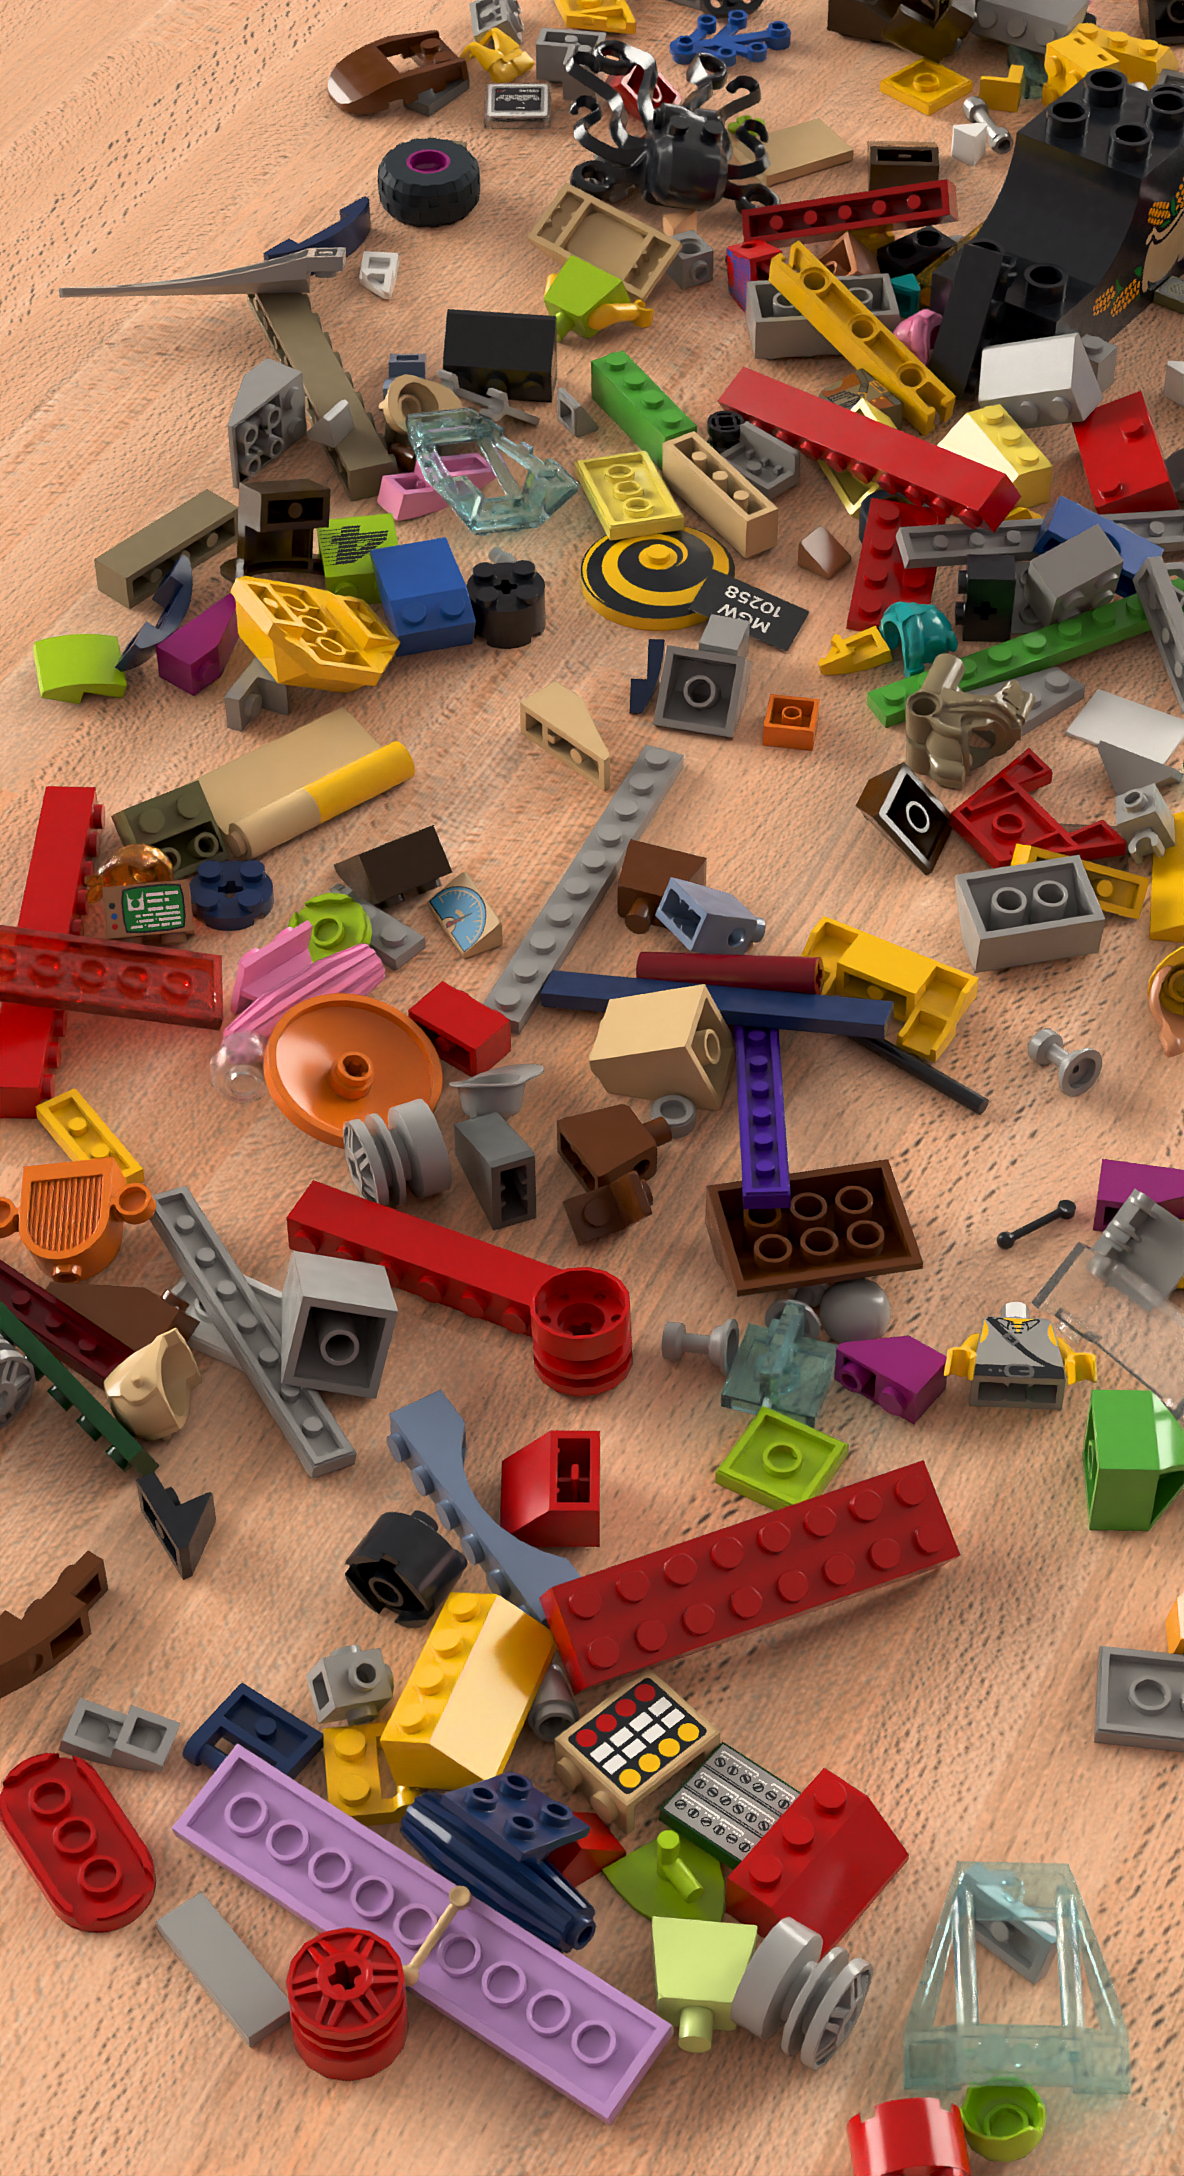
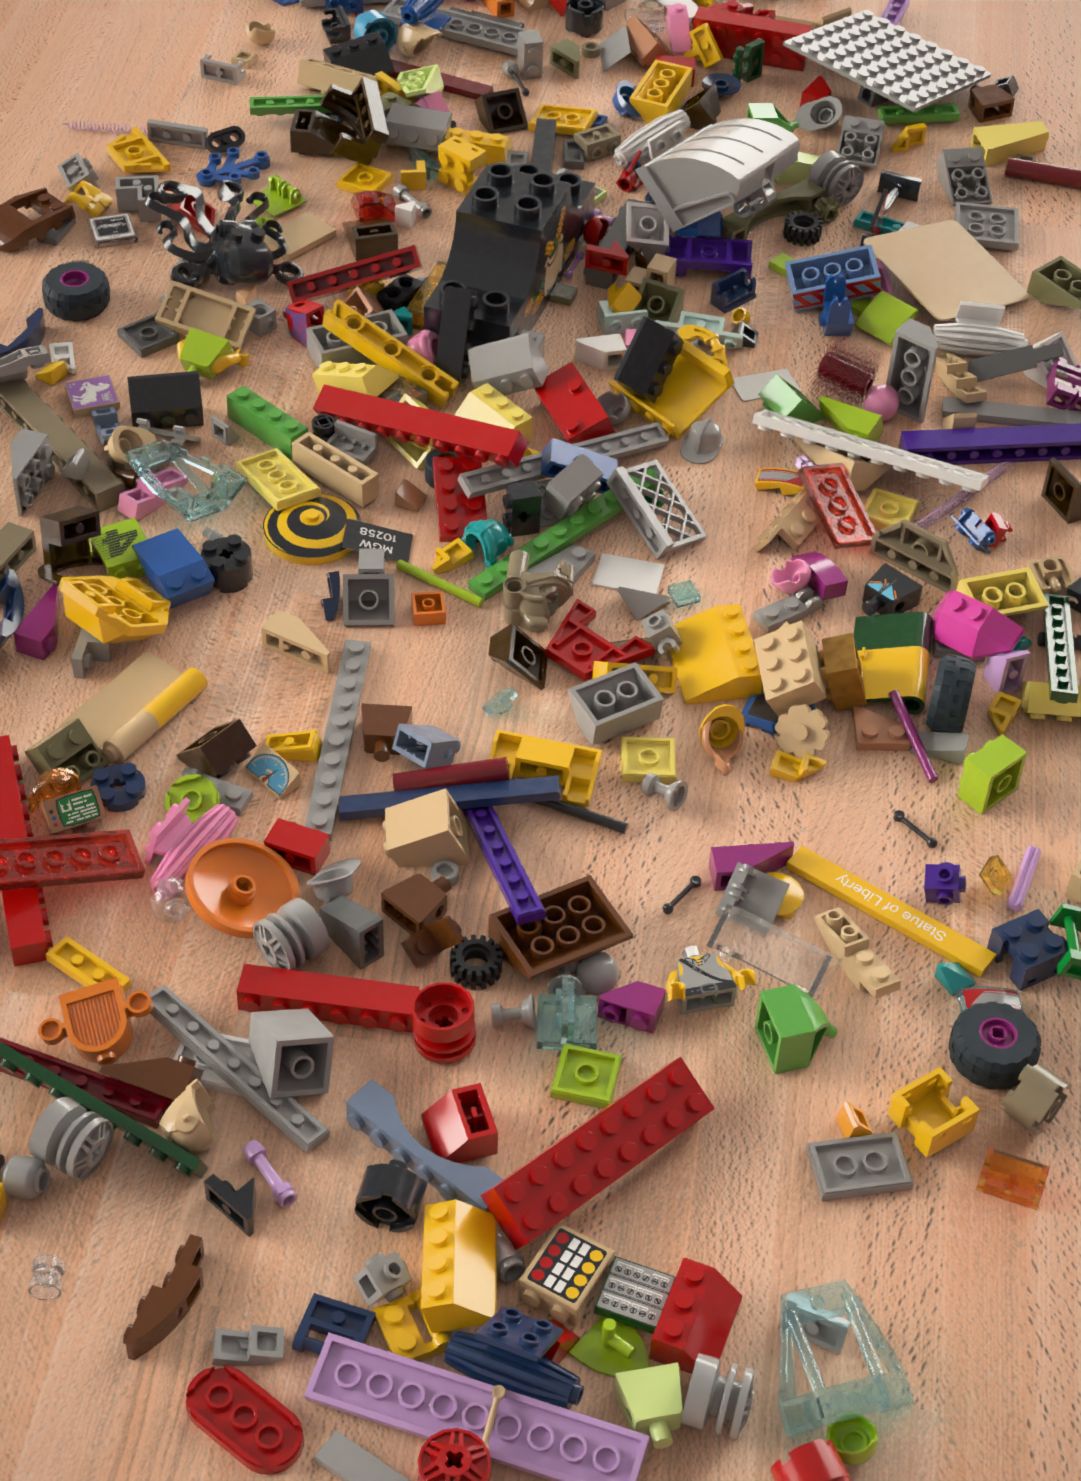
camera: 20 degrees left, 0 degrees up
(252, 1522) = (282, 1191): none -> lavender bar
(356, 293) = (52, 372): none -> yellow slope
(400, 332) = (91, 394): none -> tile
(513, 263) = (147, 336): none -> dark grey tile
(515, 885) = (296, 745): none -> yellow slope
(670, 1275) = (476, 974): none -> black tyre
(785, 91) = (281, 196): none -> lime hinge
(797, 364) = (354, 377): none -> light yellow slope
(824, 689) = (440, 583): none -> lime bar
(851, 880) = (500, 702): none -> clear light blue plate
(925, 122) = (373, 205): none -> clear red slope
(1060, 1003) = (648, 755): none -> light yellow tile

